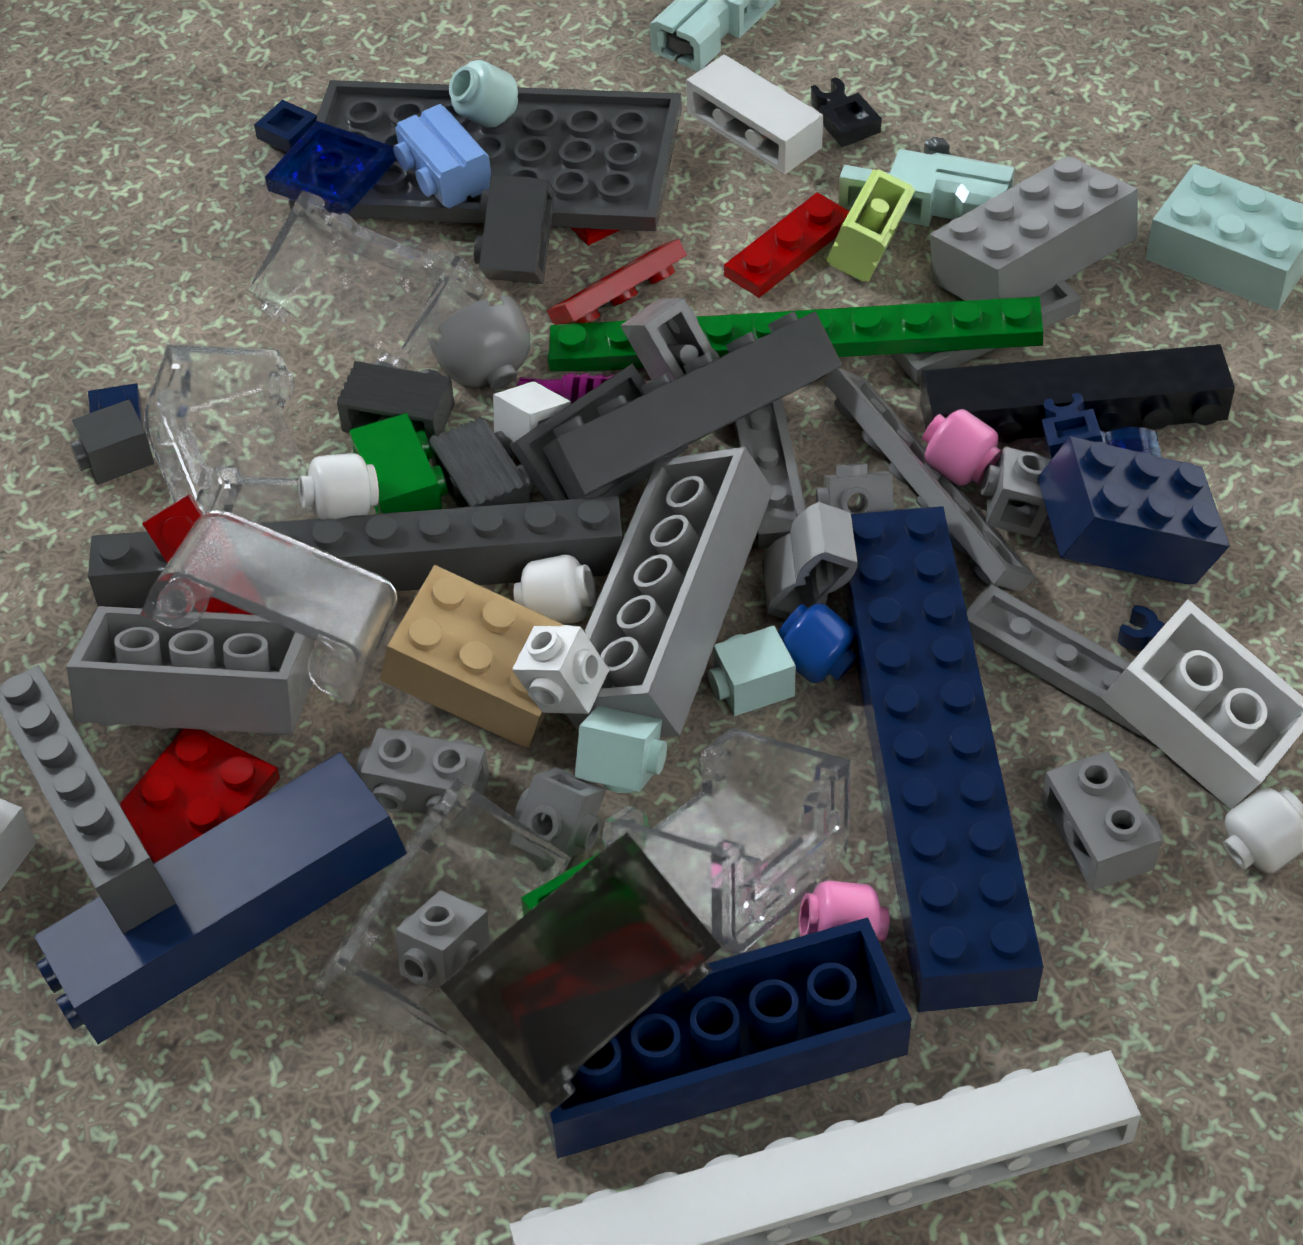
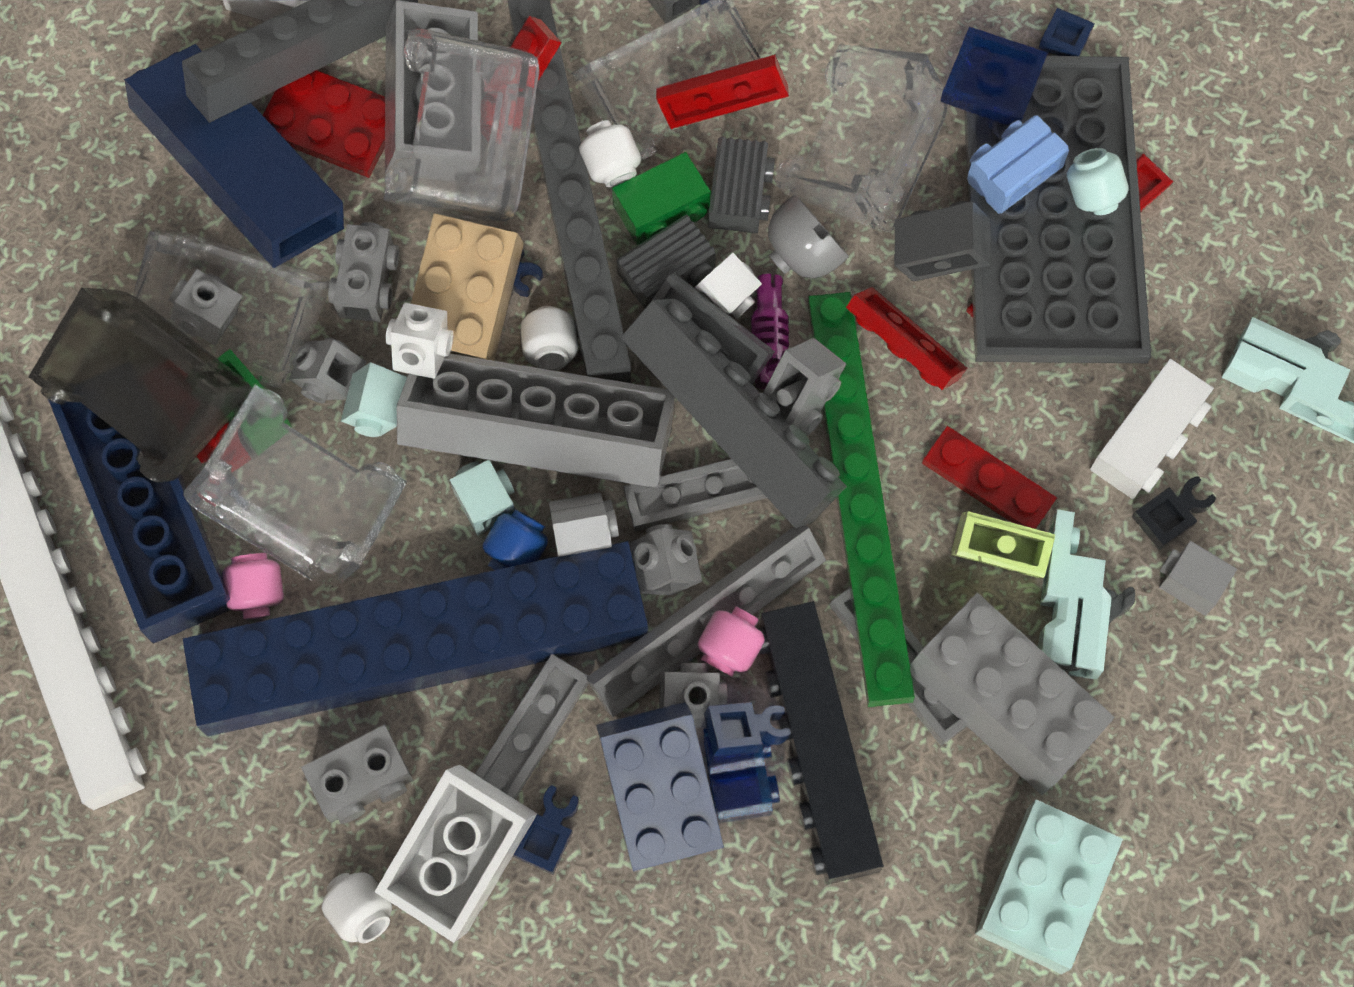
camera: 80 degrees right, 20 degrees up
(283, 386) = (722, 92): none -> red plate
(917, 101) = (1196, 577): none -> light grey brick

